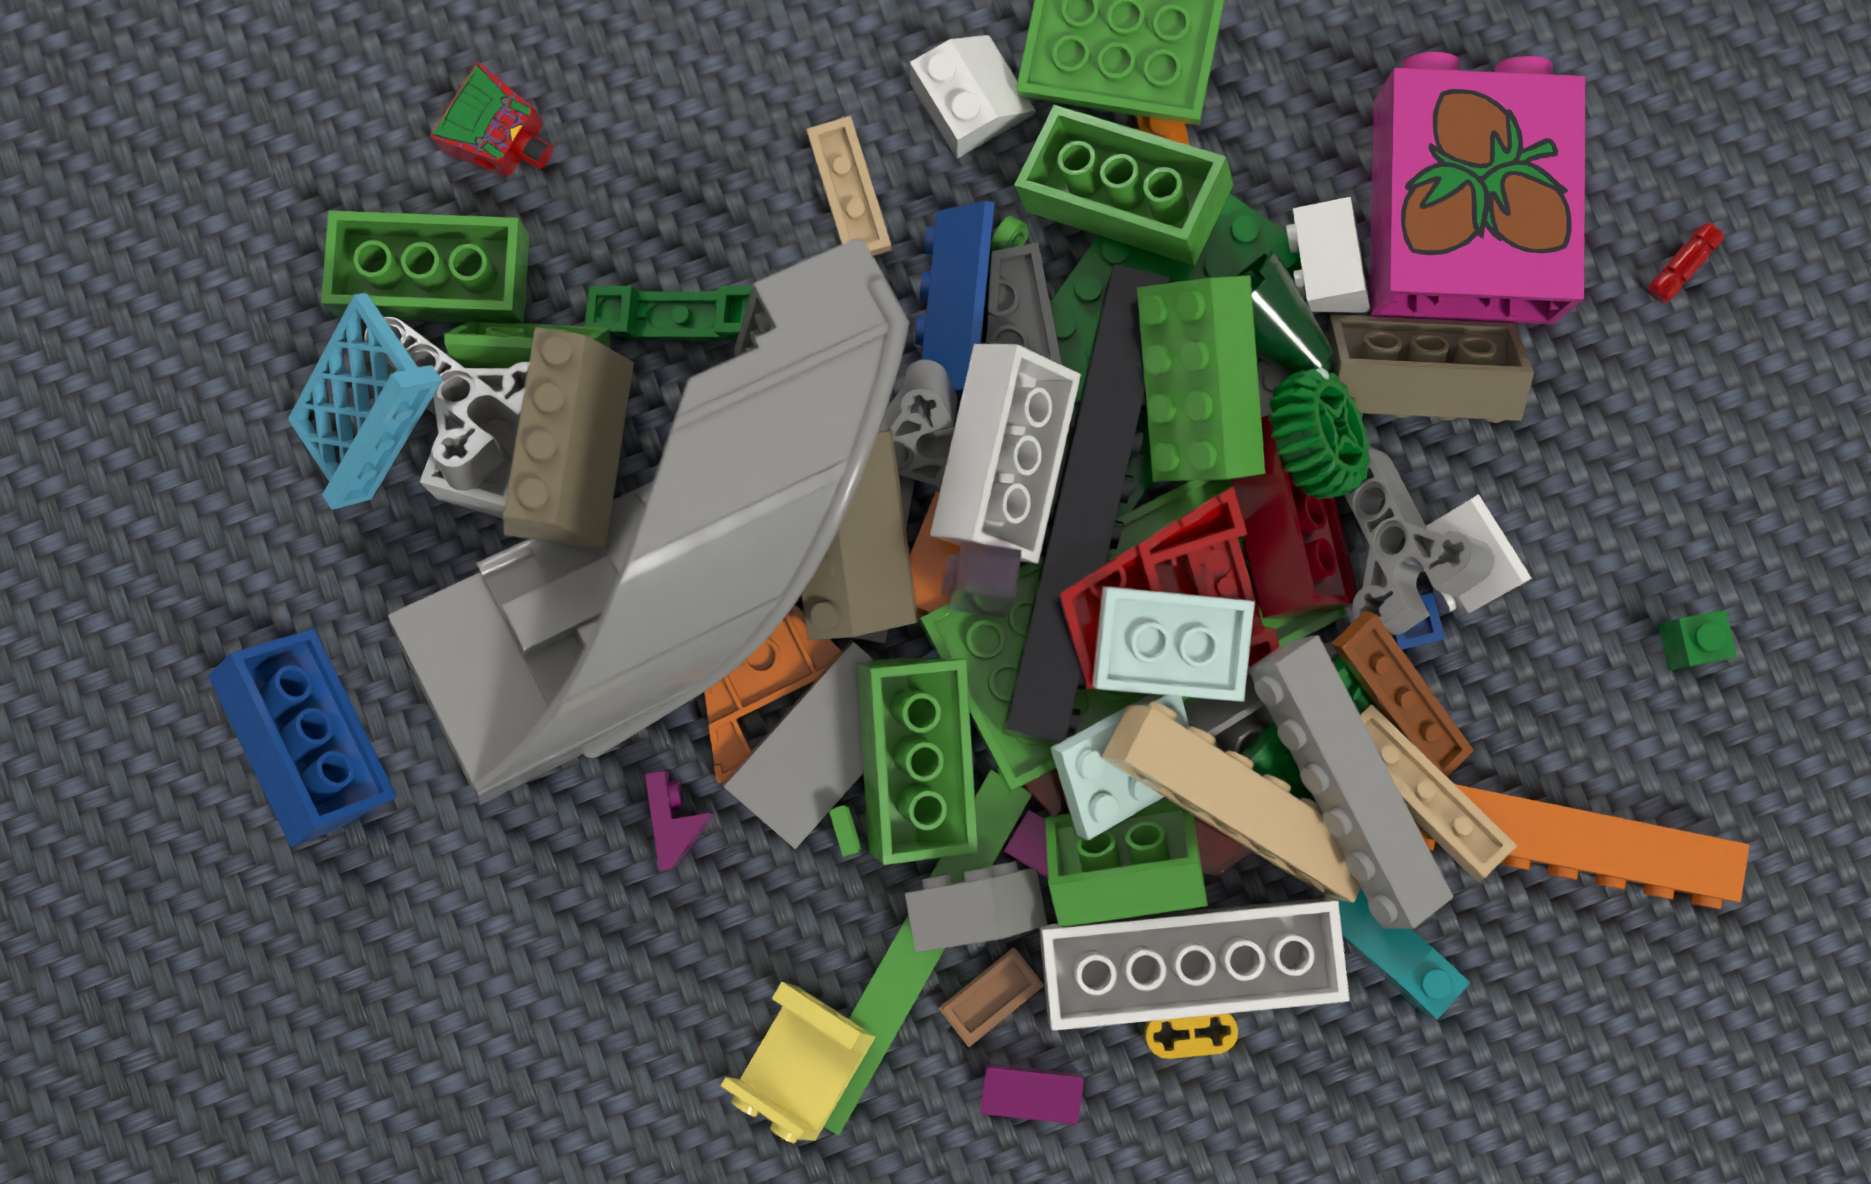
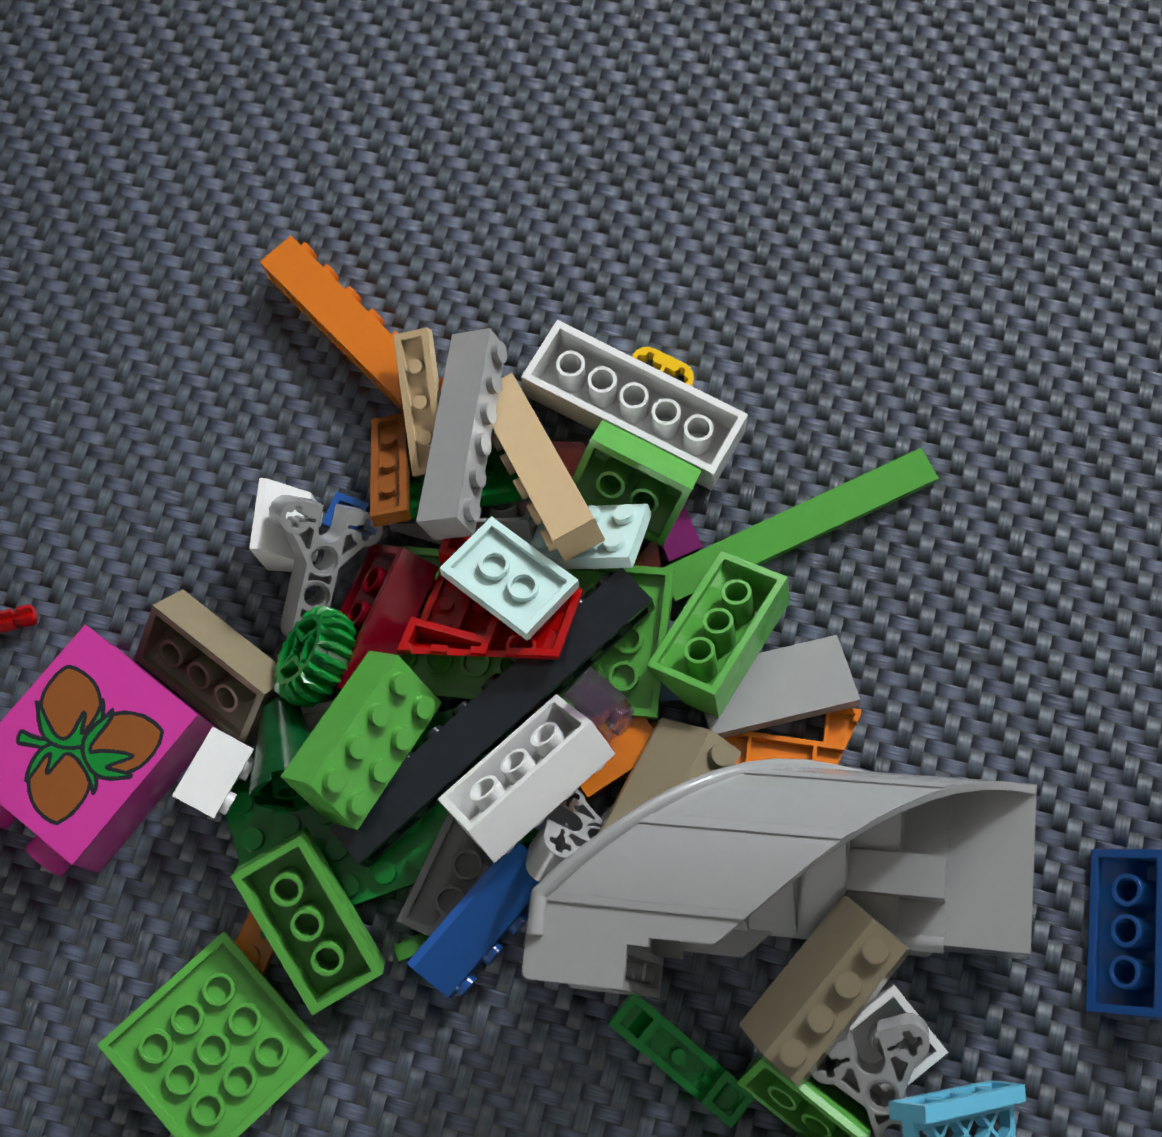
camera: 135 degrees left, 10 degrees down
(671, 834) = (911, 696): magenta slope -> none
(800, 1065) = (920, 500): light yellow panel -> none
(845, 830) = (796, 622): bright green tile -> none
(848, 184) = (495, 1067): tan plate -> none
(968, 92) = (360, 1078): white slope -> none
(982, 908) = (748, 513): light grey brick -> none
(991, 996) = (770, 469): medium nougat tile -> none
(1031, 1093) = (783, 399): magenta slope -> none
(1402, 959) = (504, 319): teal slope -> none
(1697, 640) = (191, 392): green brick -> none

